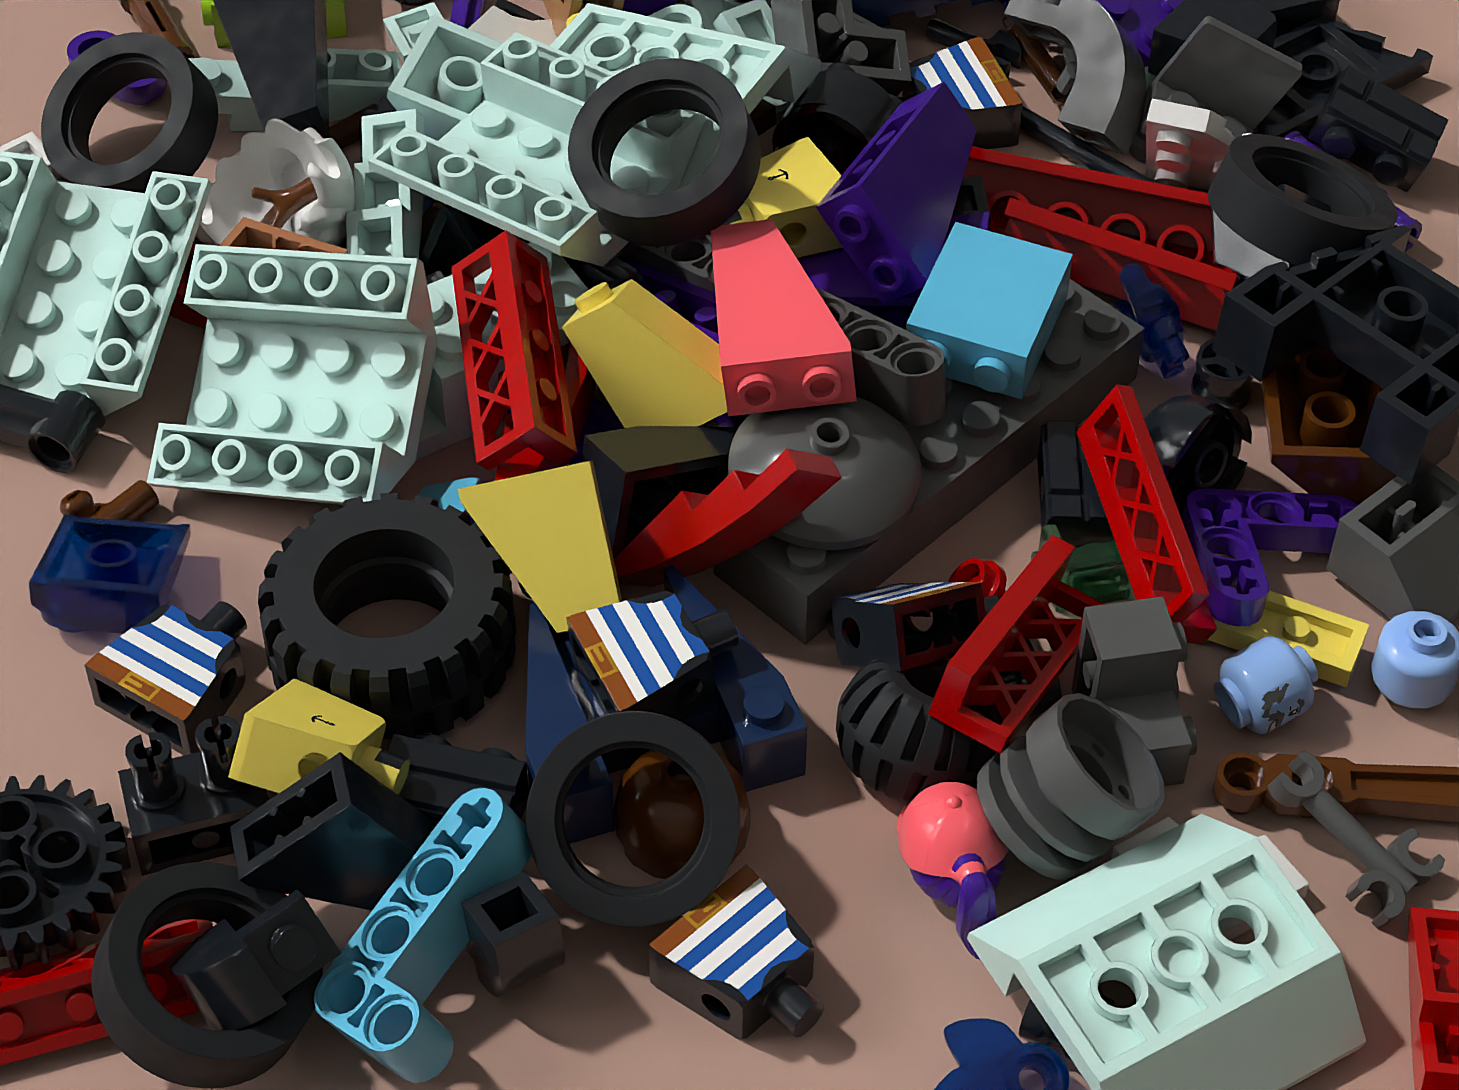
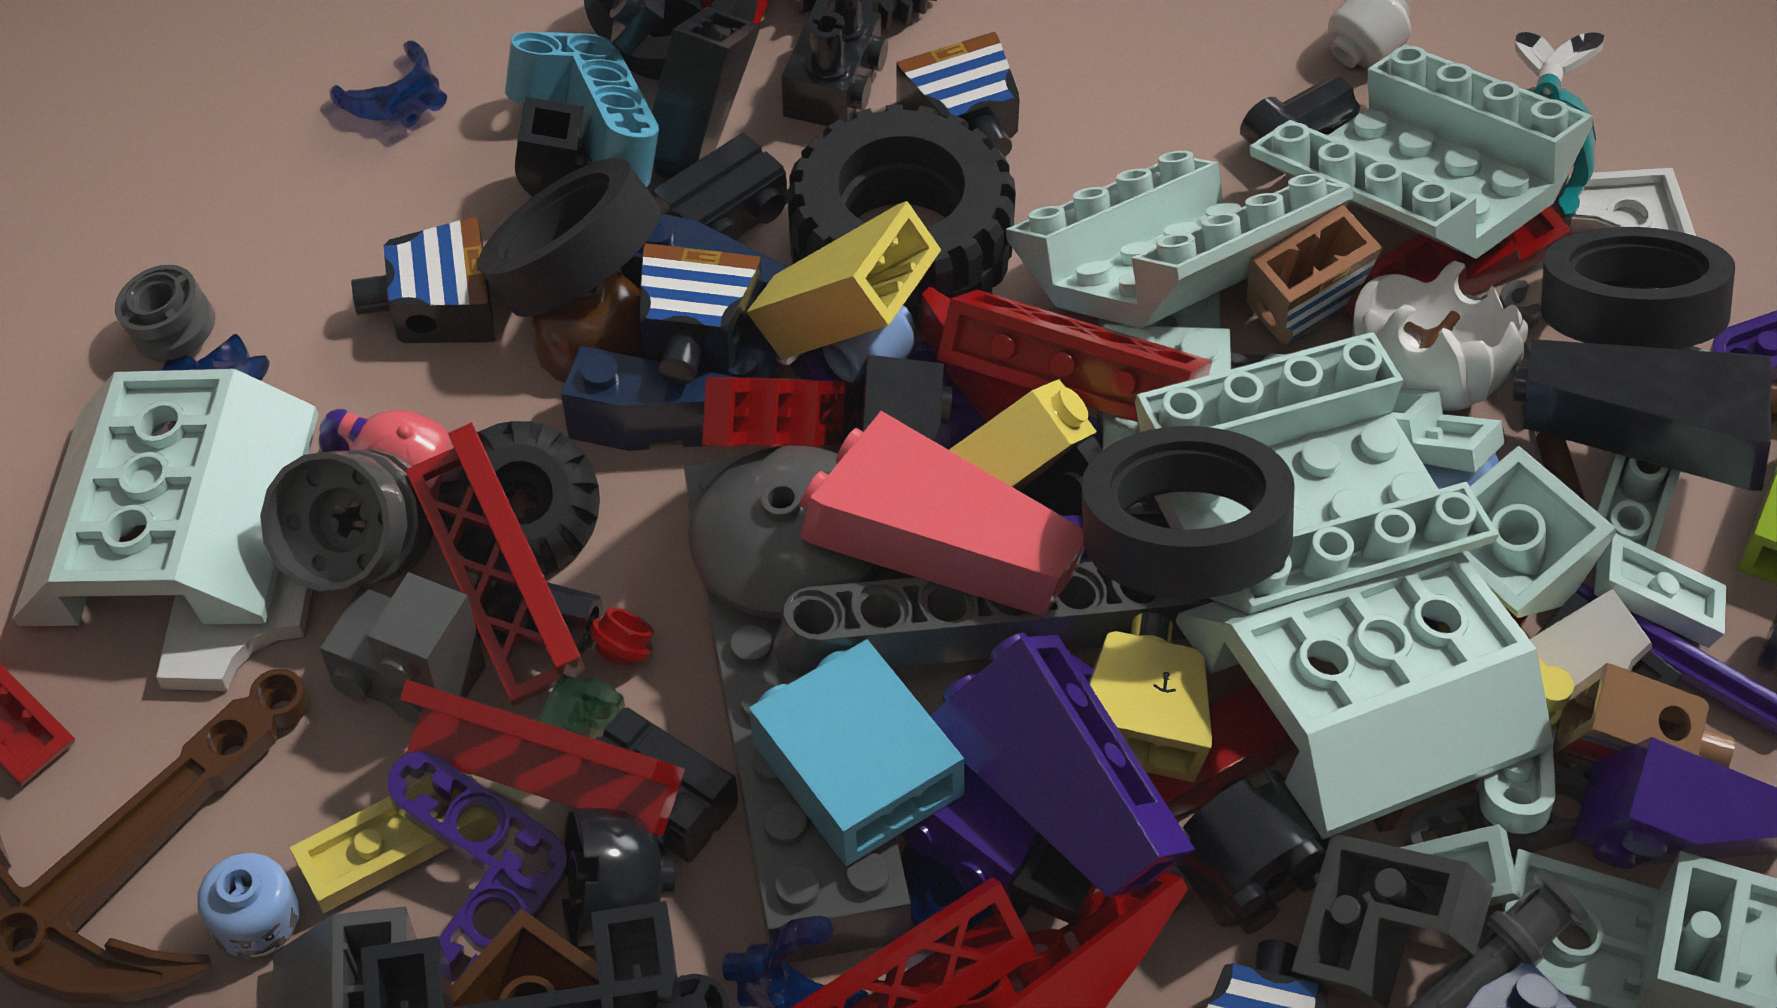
camera: 125 degrees right, 5 degrees up
(106, 573) = (1095, 96): clear blue slope -> none
(127, 506) = (1175, 125): reddish brown arm -> none
(302, 730) = (789, 96): light yellow torso -> none
(880, 626) = (605, 520): black torso -> none
(1266, 685) = (336, 771): light blue head -> none
(1390, 870) = (120, 736): dark grey bar -> none

